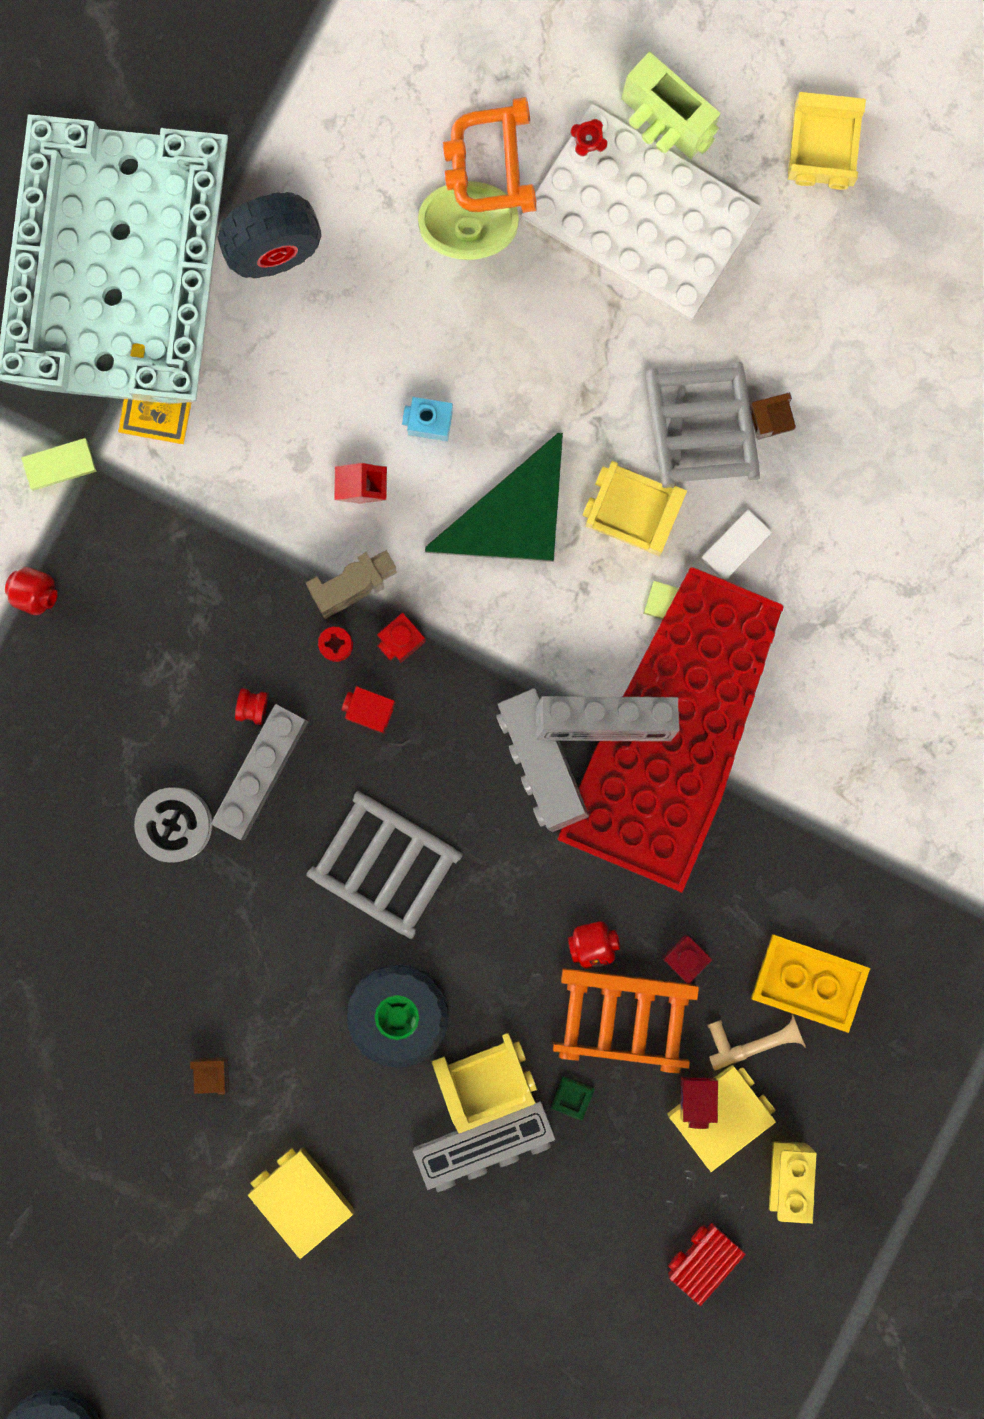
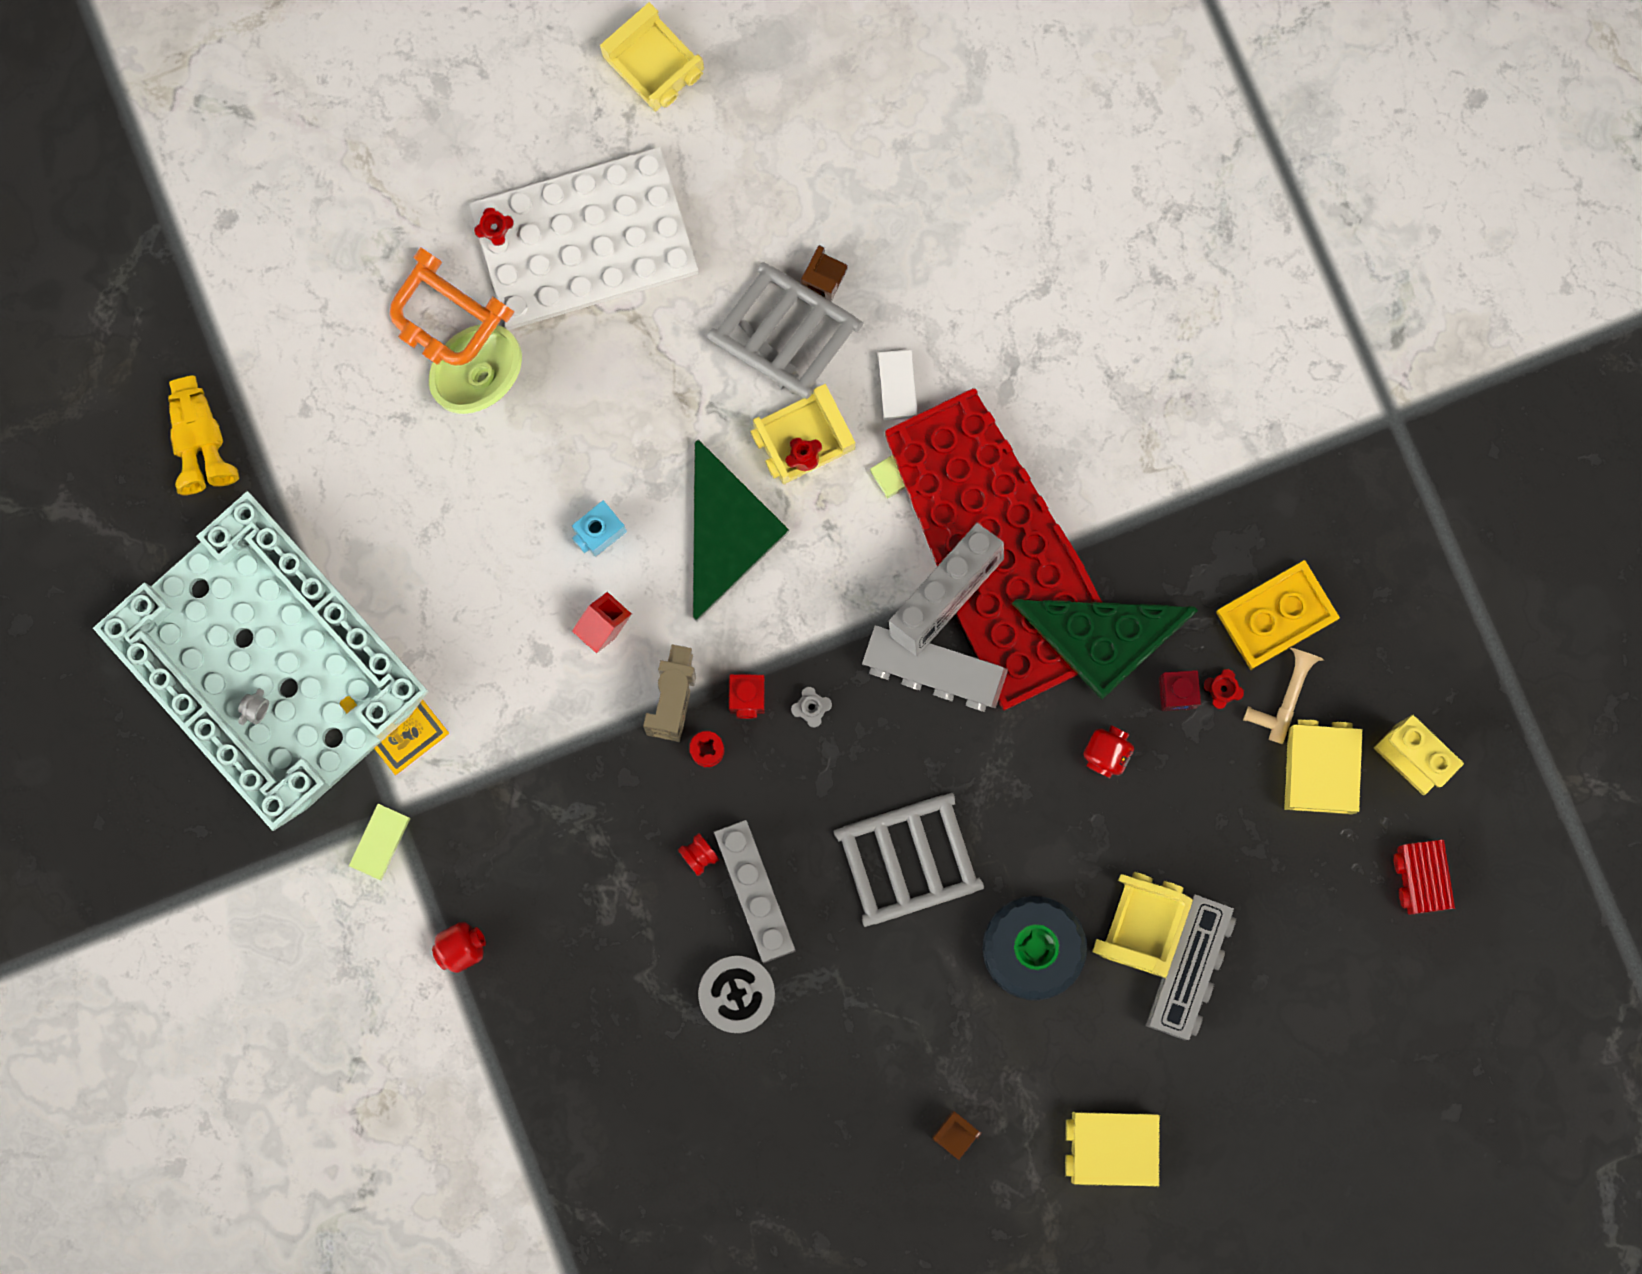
camera: 55 degrees left, 5 degrees down
(73, 284) = (253, 707): none -> light grey plate
(242, 57) = (193, 432): none -> yellow piece
(269, 235) = (352, 525): black wheel -> none
(368, 709) = (779, 767): red brick -> none
(428, 701) = (812, 716): none -> light grey plate
(572, 1098) = (1211, 870): dark green tile -> none
(616, 529) = (807, 461): none -> red plate
(645, 992) = (1179, 745): orange fence -> none
(669, 108) = (527, 148): yellowish green piece -> none
(675, 868) = (1103, 638): none -> dark green tile
(699, 1101) = (1298, 772): dark red brick -> none
(727, 986) = (1228, 680): none -> red plate

